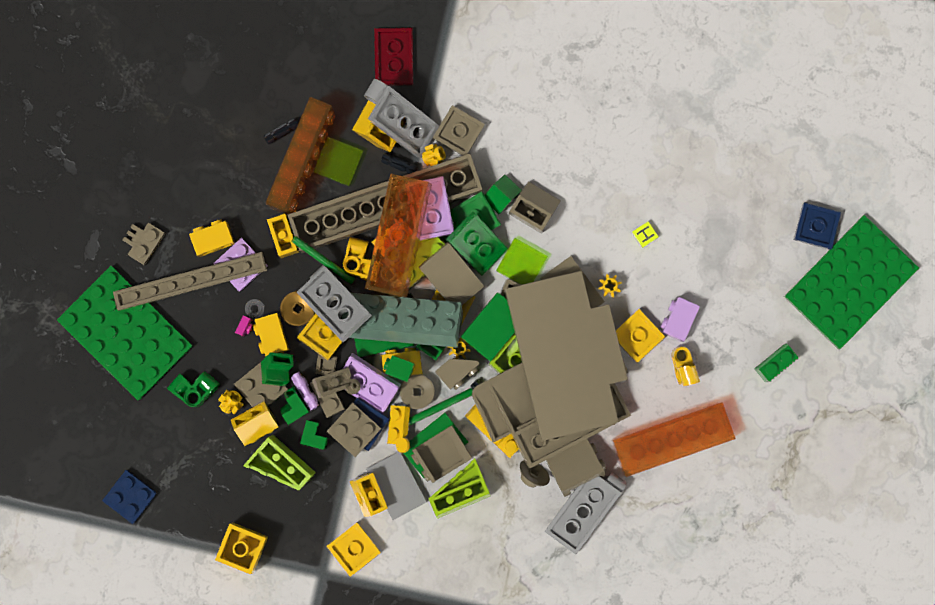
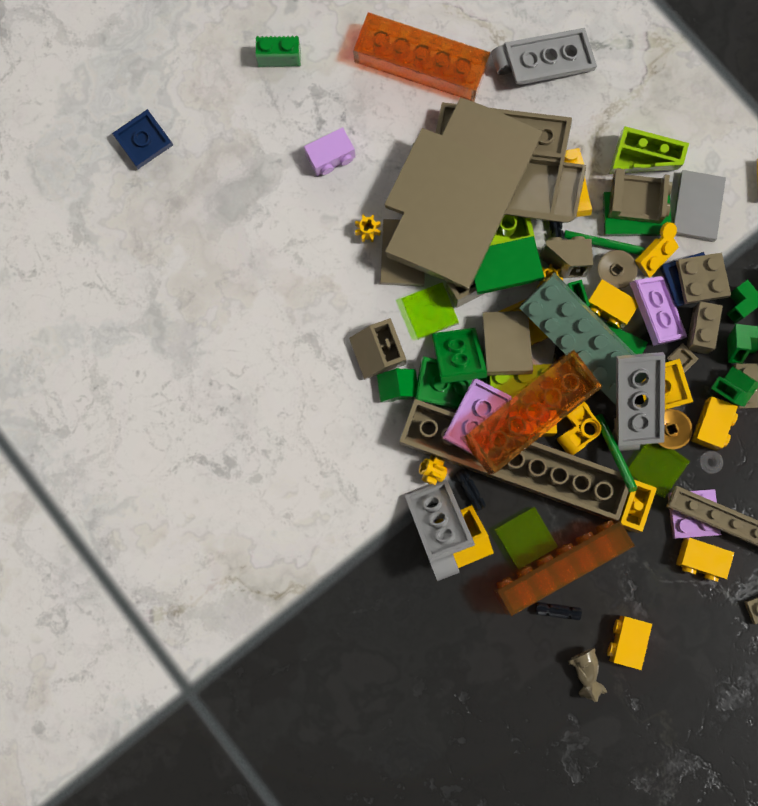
camera: 135 degrees left, 5 degrees down
(220, 146) = (629, 642): none -> yellow brick
(234, 106) = (587, 670): none -> dark tan animal
(244, 326) = (735, 451): dark pink plate -> none
(286, 276) = (658, 467): none -> clear neon green tile
(302, 386) = (724, 353): lavender plate -> none
(336, 382) = (692, 328): dark tan hinge -> none
(368, 494) = (733, 212): yellow brick -> none
(394, 56) = (394, 597): dark red tile -> none
(399, 368) = (624, 292): green brick -> none
(458, 131) = (391, 475): dark tan plate -> none
(534, 476) = (570, 109): dark tan piece -> none
(576, 466) = (526, 92): dark tan panel -> none
(638, 335) = (377, 166): yellow plate -> none
(645, 234) = (298, 250): neon yellow tile -> none
(685, 369) = (361, 106): yellow piece -> none
(851, 282) = (155, 72): green plate -> none

